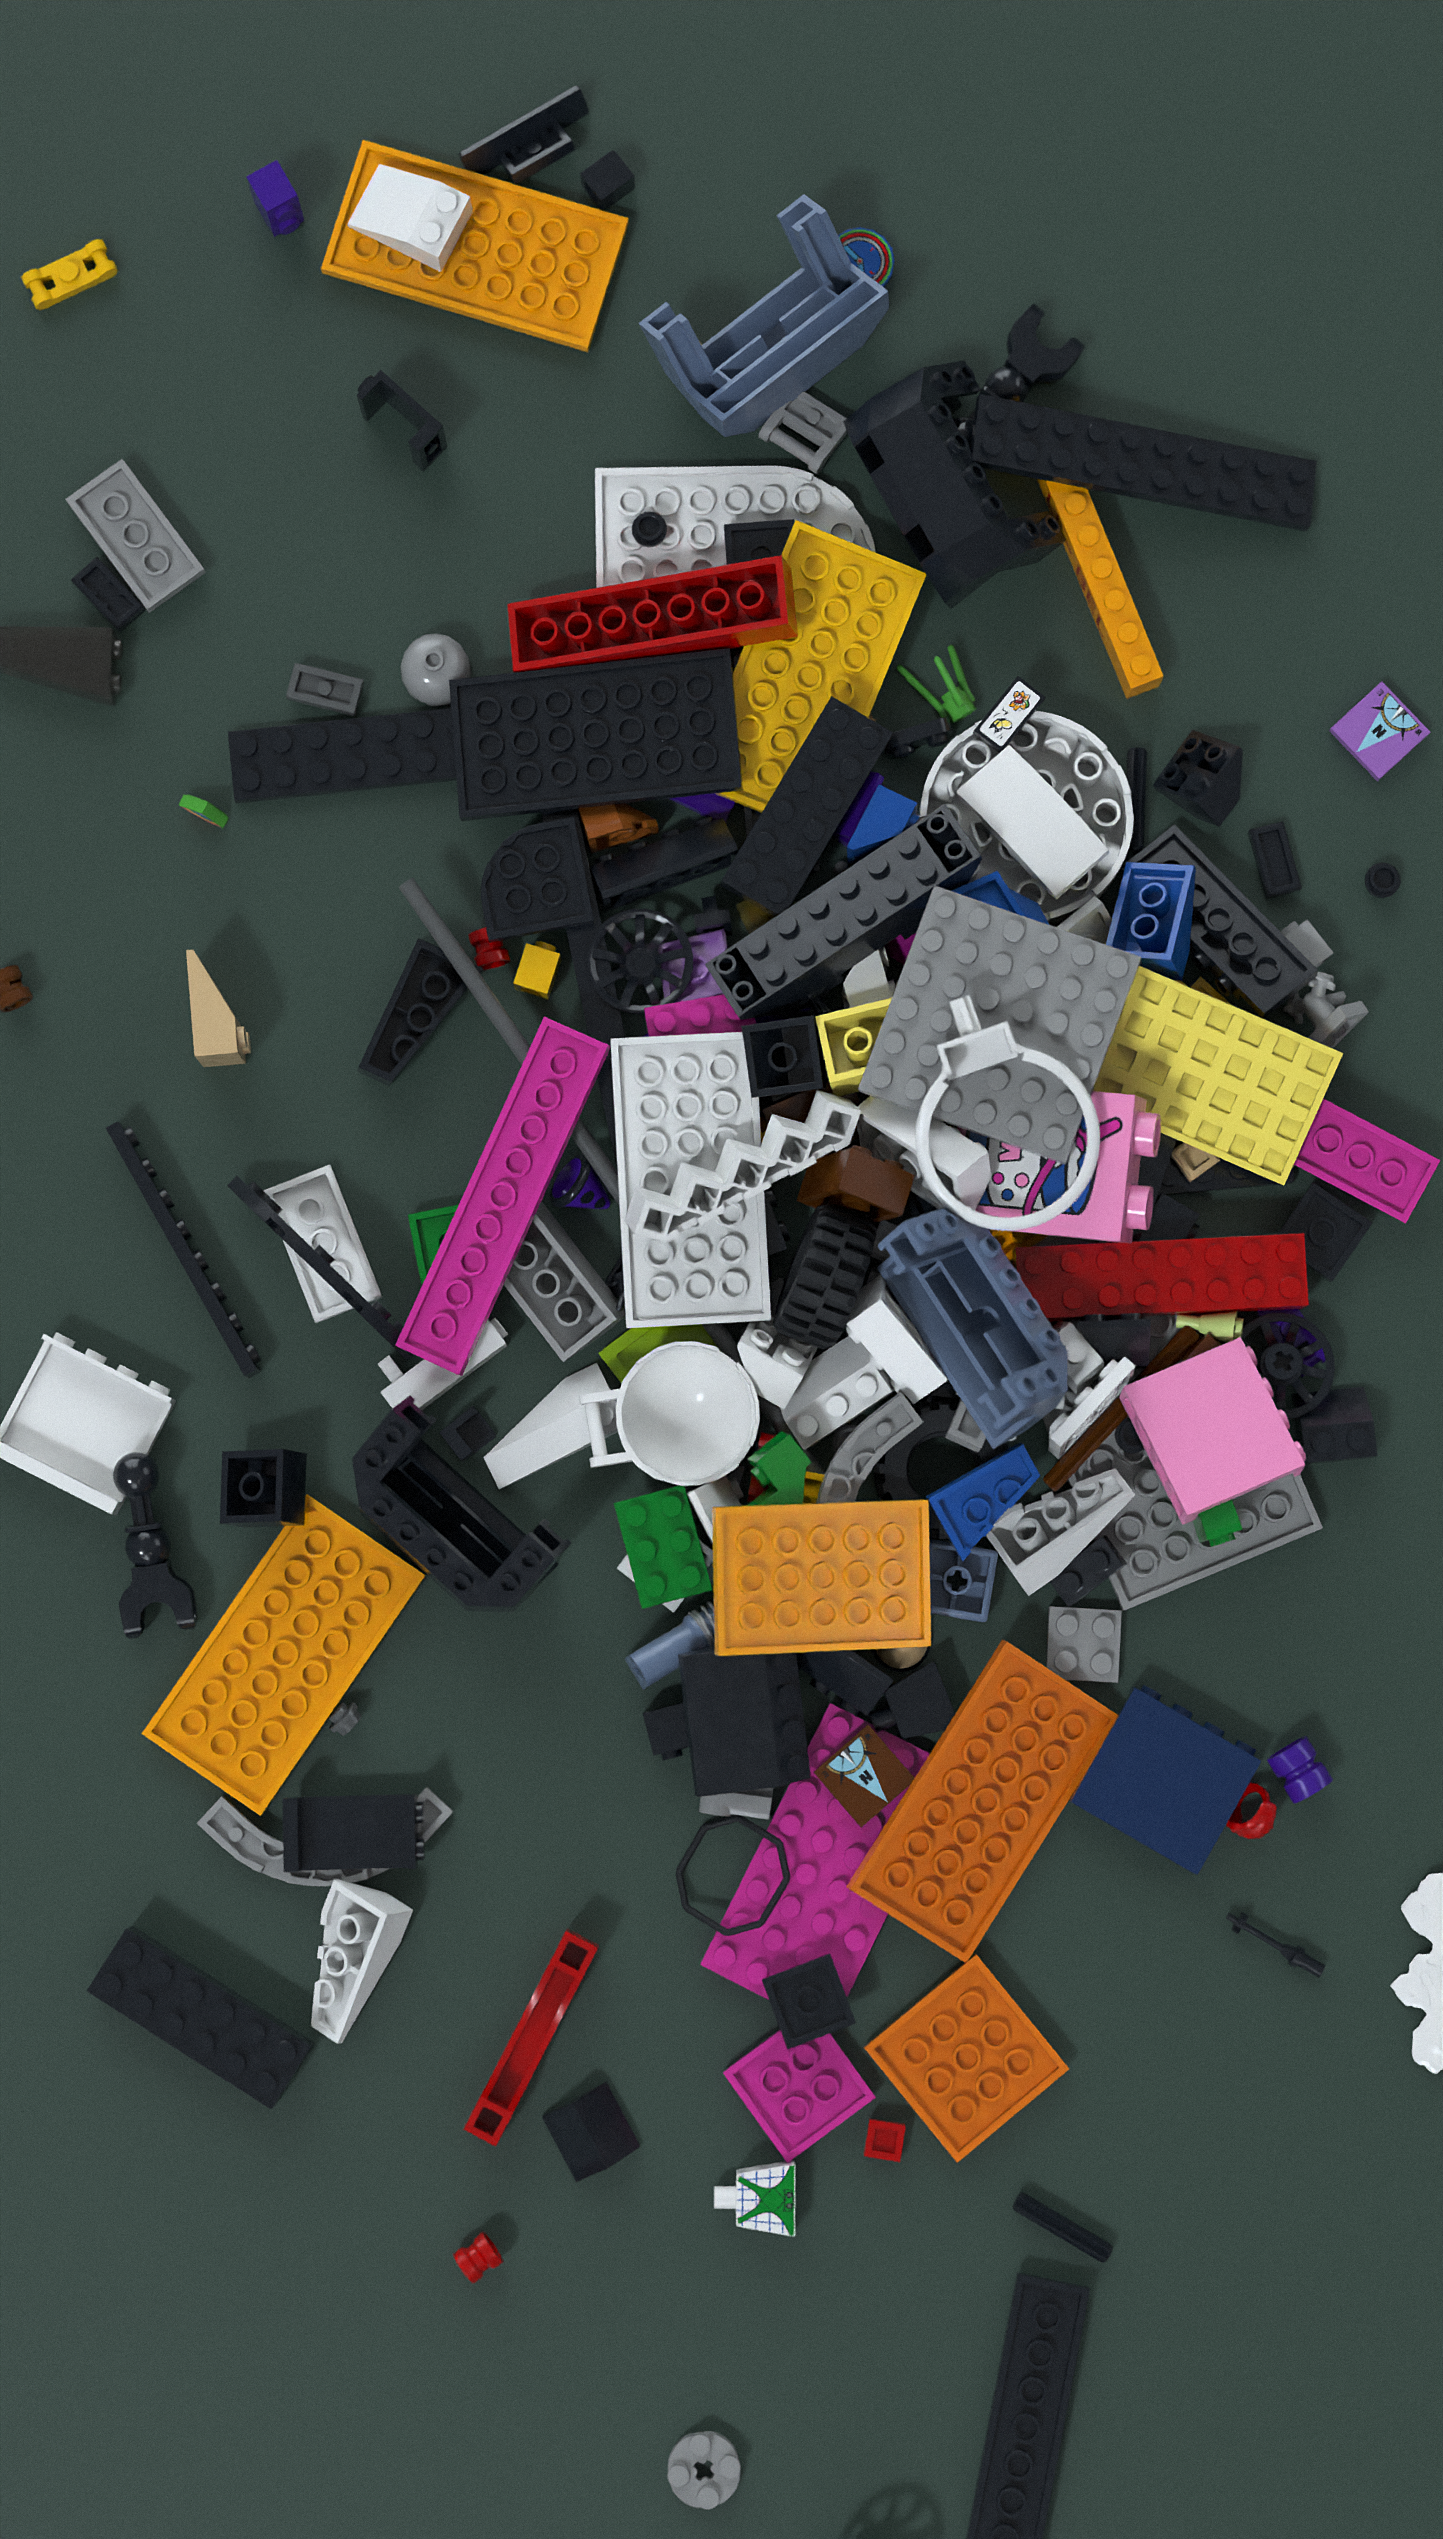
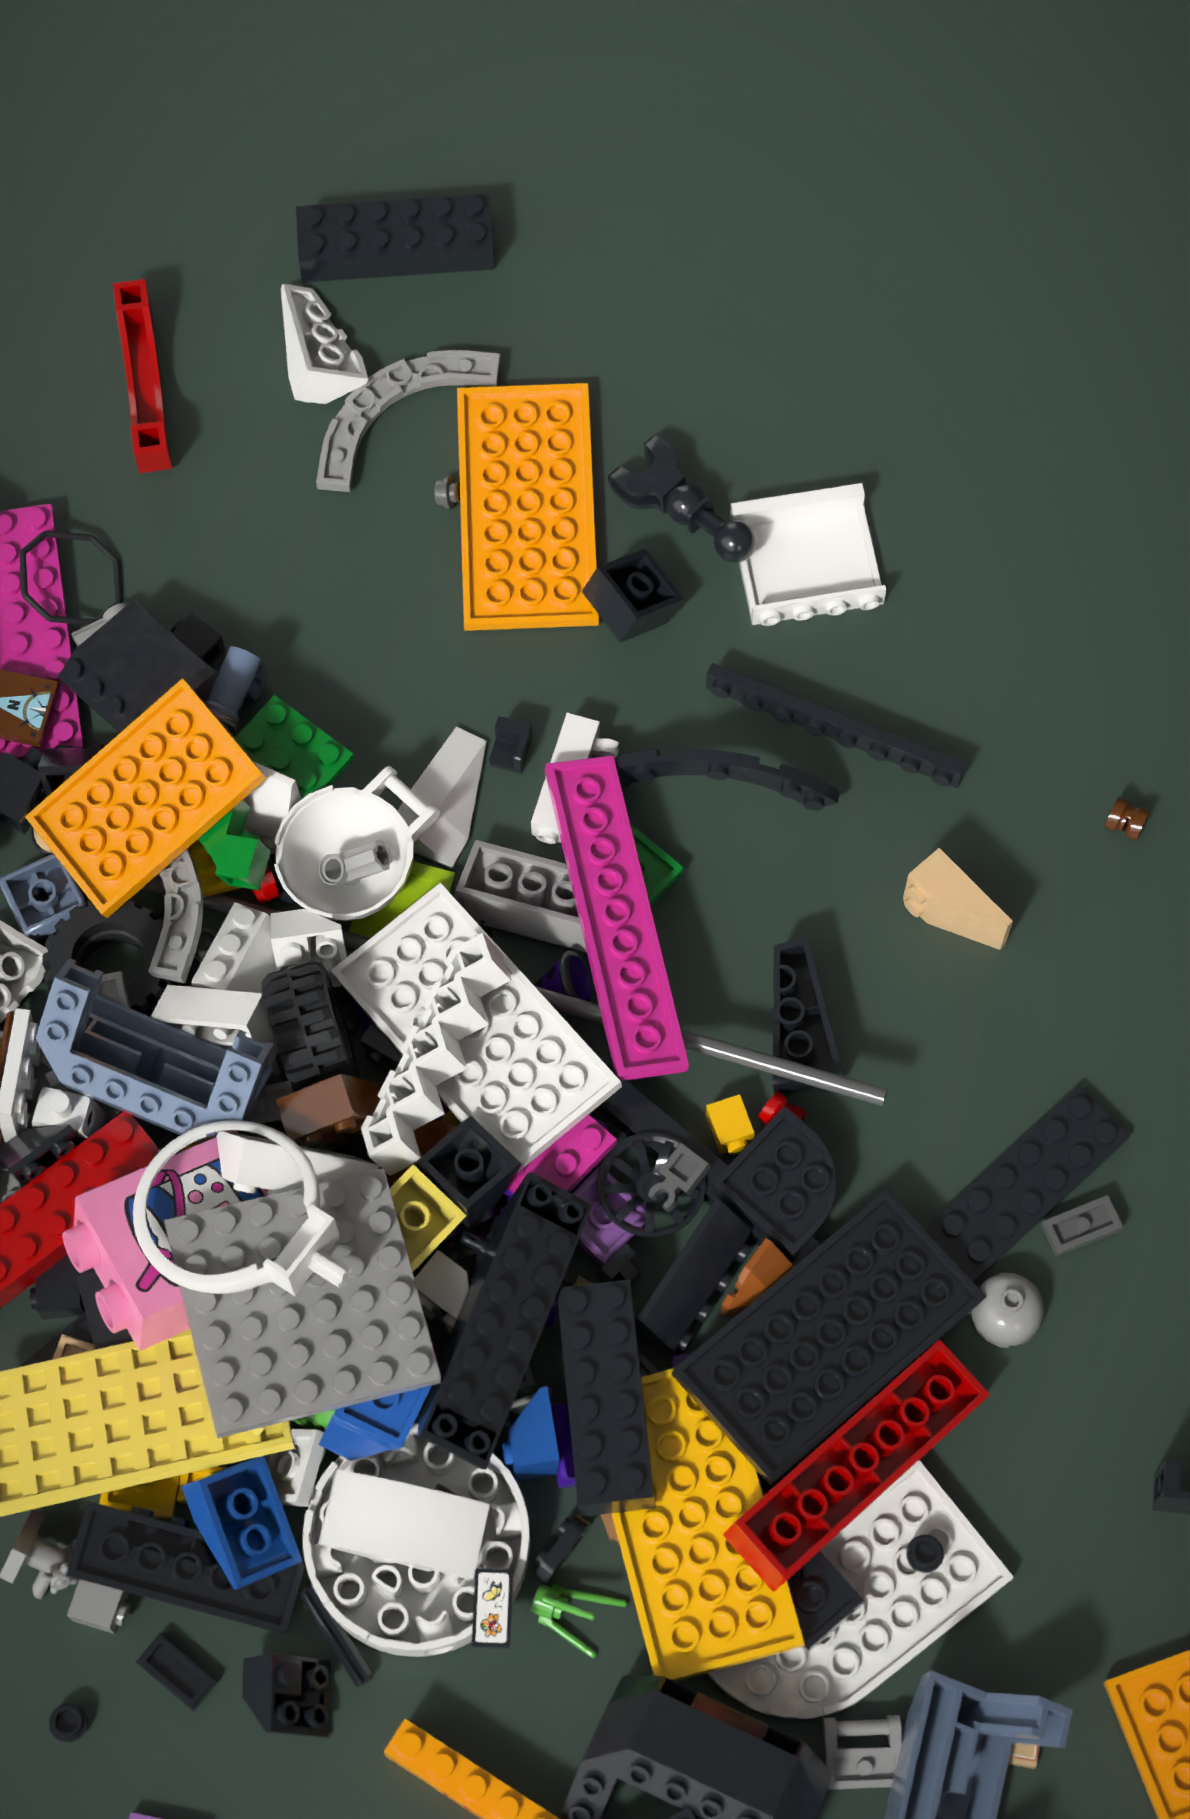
camera: 145 degrees right, 15 degrees down
(204, 810) = (1095, 1057): bright green tile -> none
(321, 1217) = (737, 813): white tile -> none
(352, 1832) = (381, 417): black panel -> none
(446, 1521) = (470, 663): black wedge -> none
(478, 2257) = (76, 219): red wheel -> none
(591, 2132) = (51, 352): black slope -> none
(612, 946) = (682, 1172): none -> dark grey plate
(681, 1404) = (355, 864): none -> light grey piece
(981, 1496) = (63, 934): blue wing -> none

